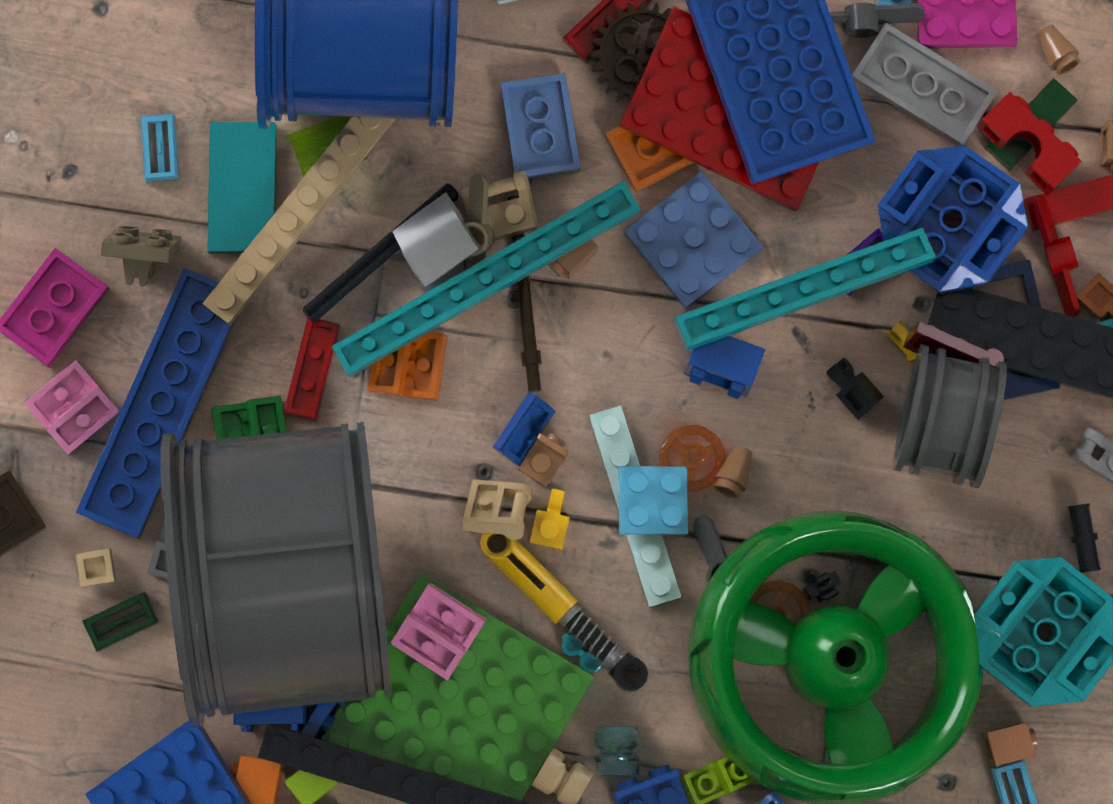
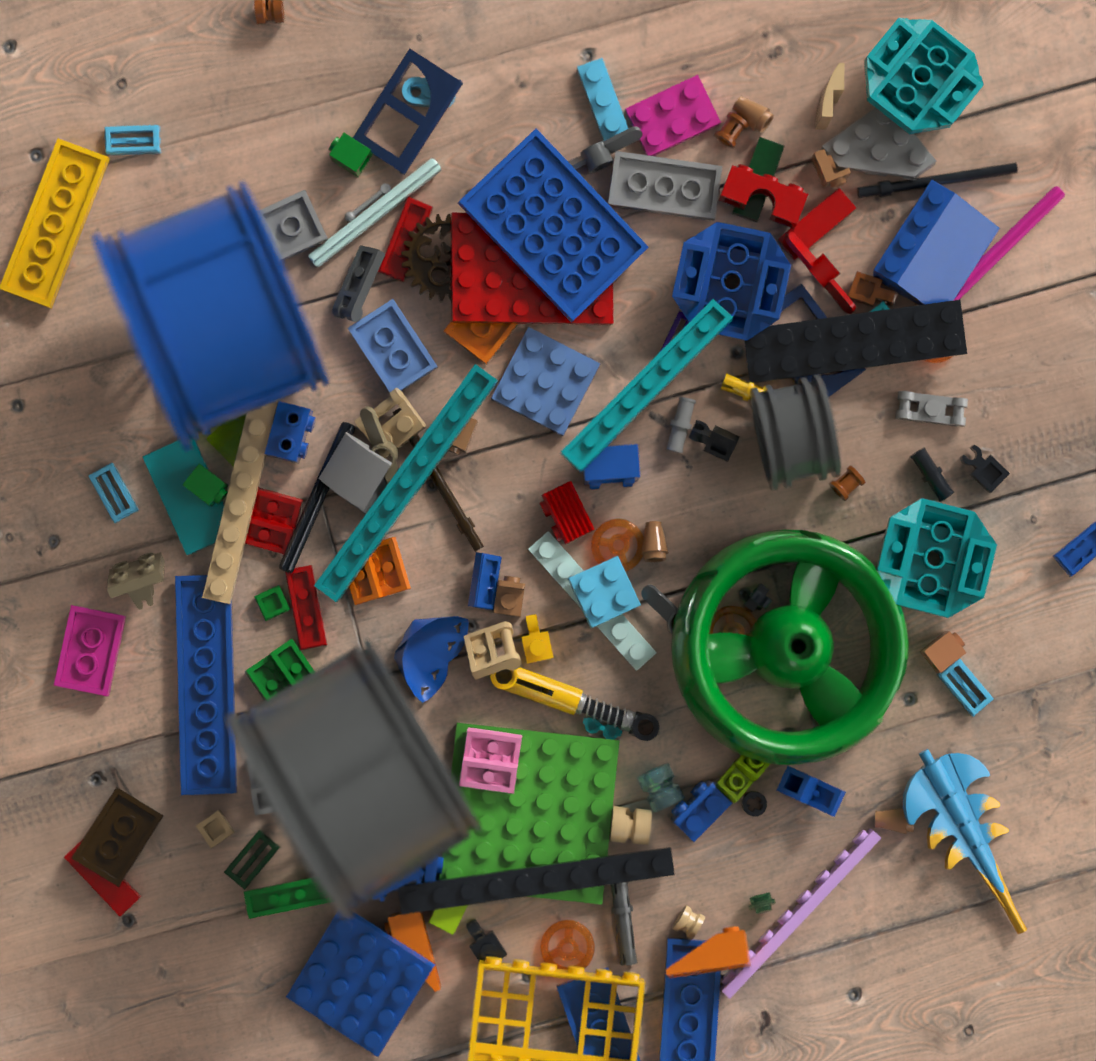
camera: 30 degrees left, 5 degrees up
(71, 406) = (140, 717): bright pink slope -> none
(137, 680) = (284, 897): none -> green plate
(264, 183) = (206, 485): none -> green brick
(277, 347) = (272, 603): none -> green tile
(320, 256) = (273, 520): none -> red slope
(381, 166) = (285, 432): none -> blue brick
(422, 477) = (426, 650): none -> blue piece
(534, 40) = (358, 283): none -> dark grey plate
(651, 394) = (567, 513): none -> red brick
(823, 354) = (680, 424): none -> light grey pin
(955, 347) = (776, 378): plate -> none
(983, 504) = (847, 483): none -> dark orange bush
(1036, 54) = (728, 135): none -> dark orange bush

